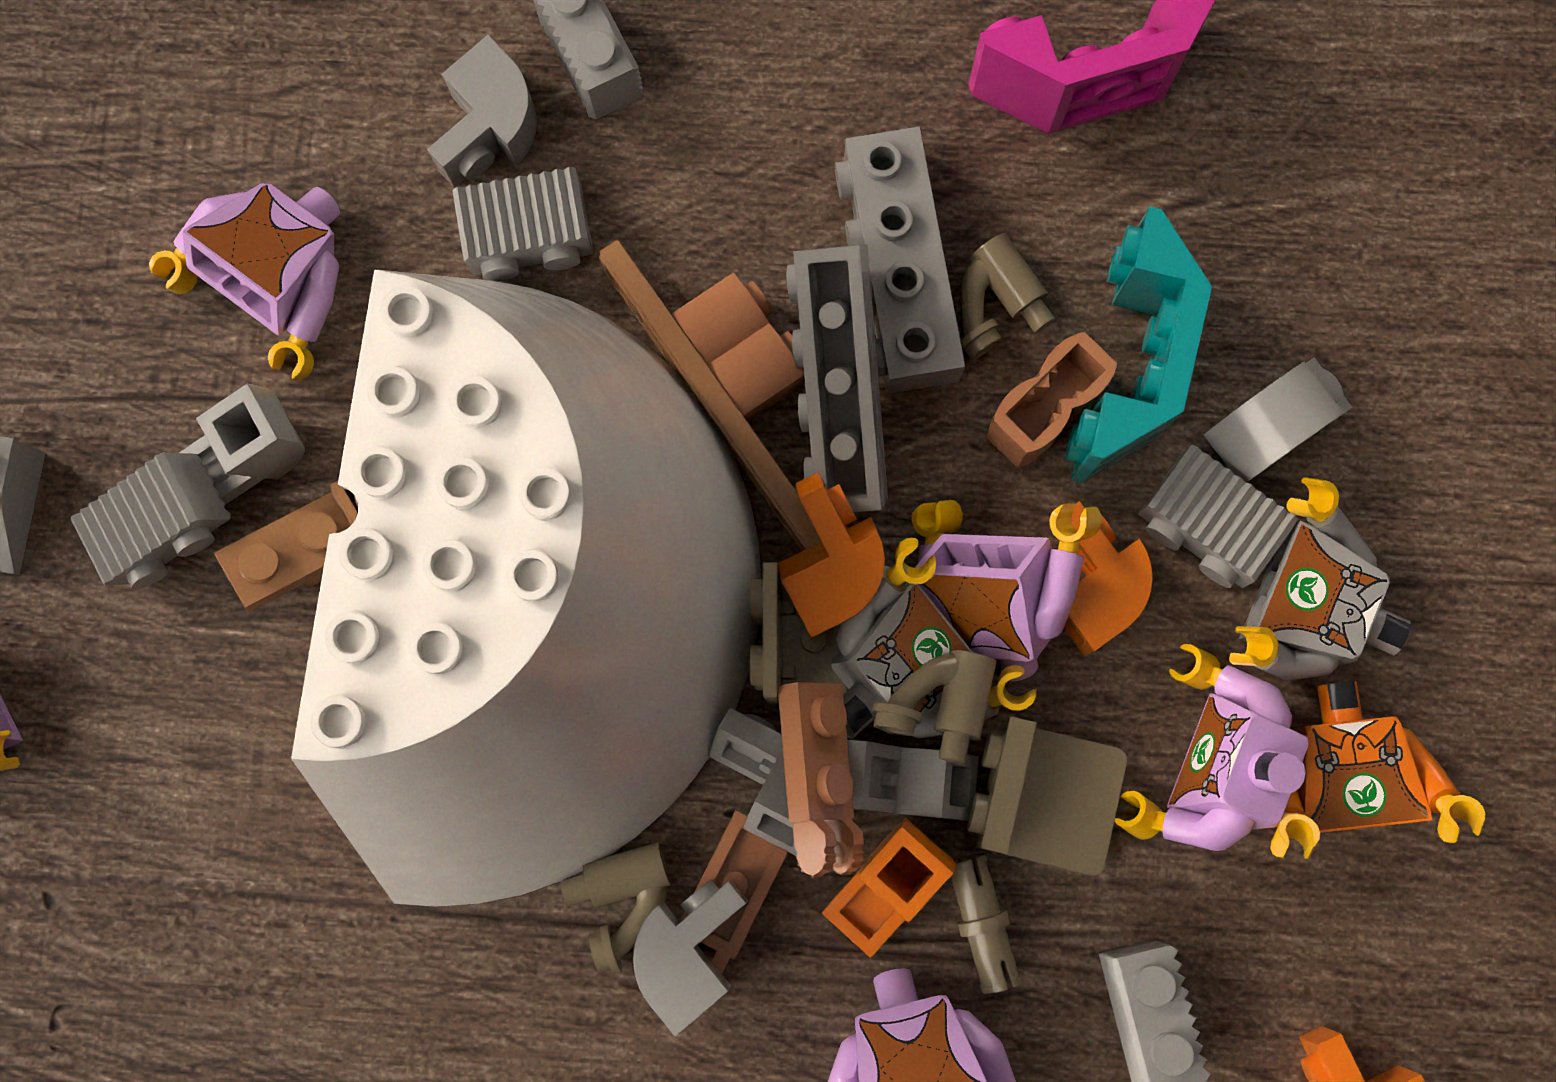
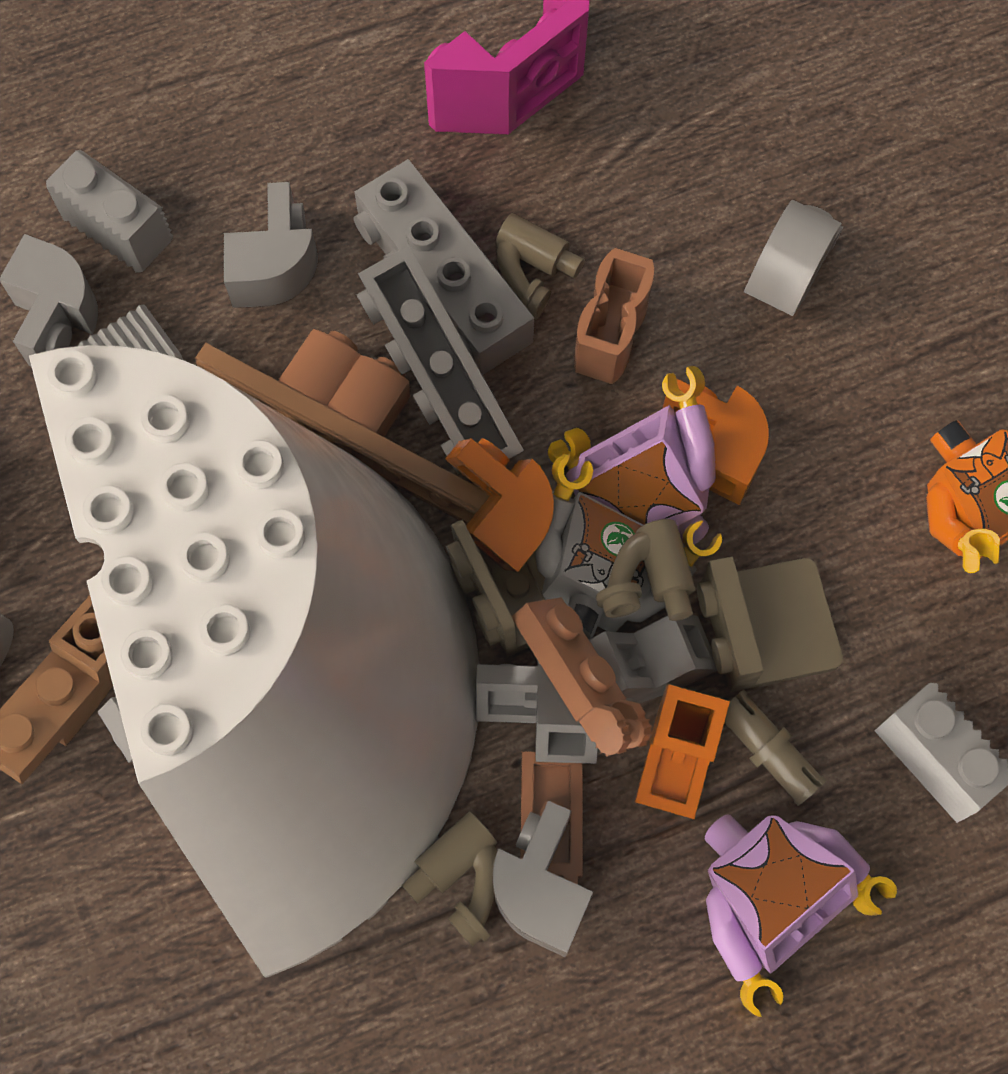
camera: 30 degrees left, 10 degrees down
(732, 177) = (274, 263): none -> light grey brick
(1159, 279) = (665, 193): teal slope -> none
(1216, 519) = (786, 349): light grey brick -> none
(1236, 767) = (903, 526): lavender torso -> none
(1319, 596) = (894, 368): torso -> none

